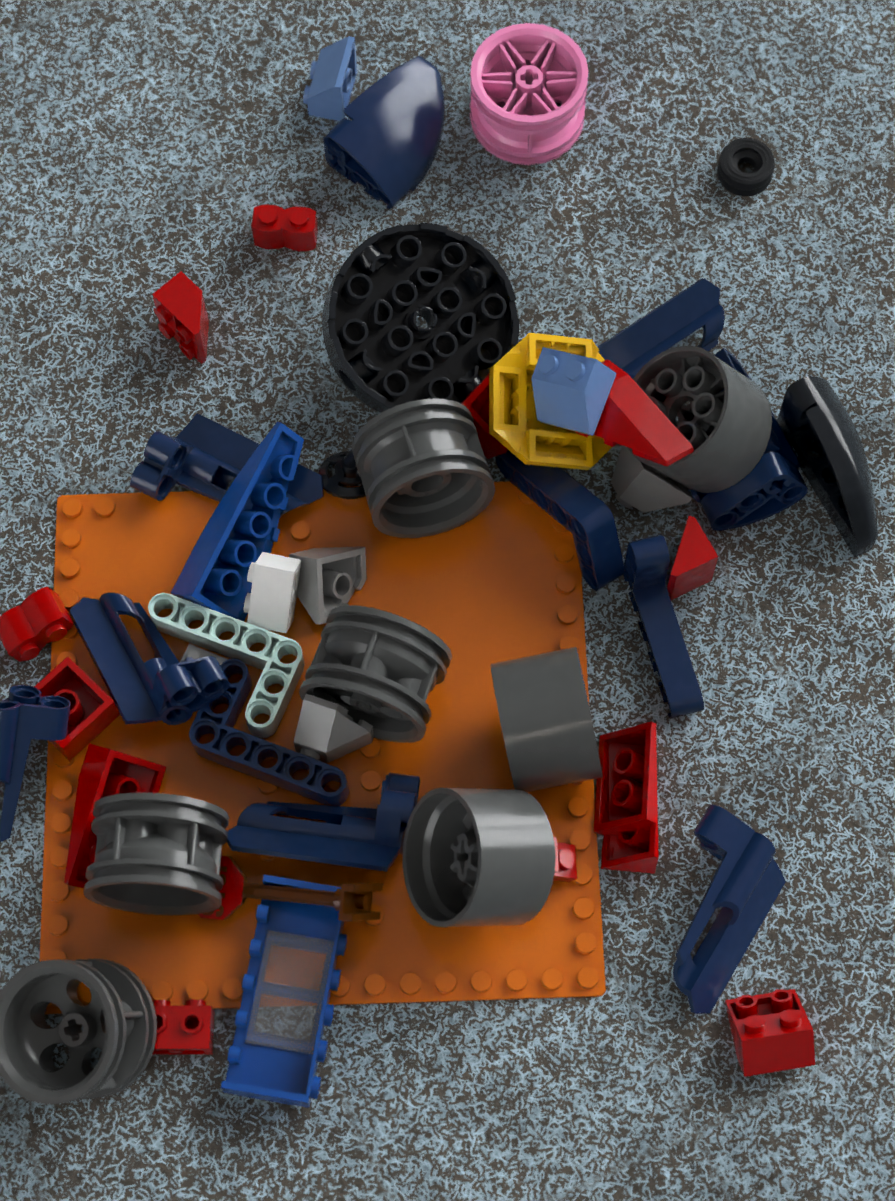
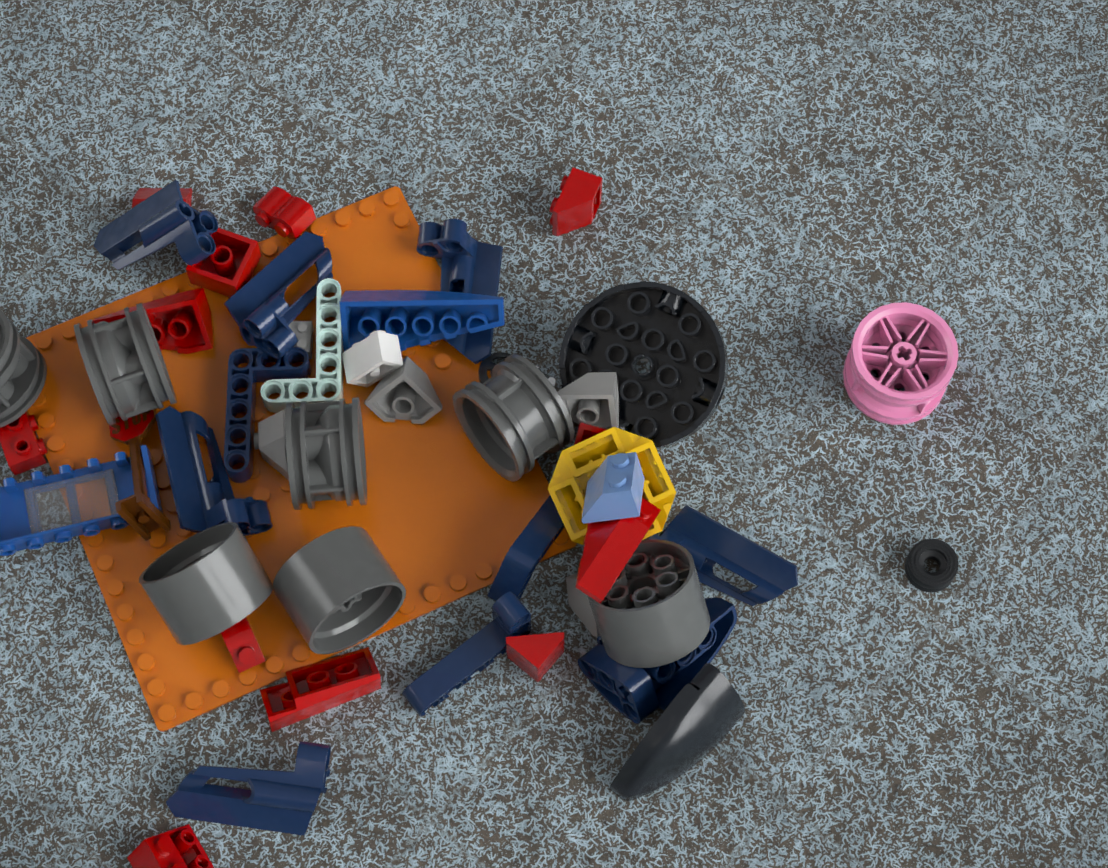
camera: 65 degrees right, 0 degrees up
(282, 227) = (693, 241): red brick -> none
(332, 80) = (841, 218): medium blue slope -> none
(391, 132) = (822, 280): dark blue panel -> none
(444, 374) = (593, 399): none -> light grey slope

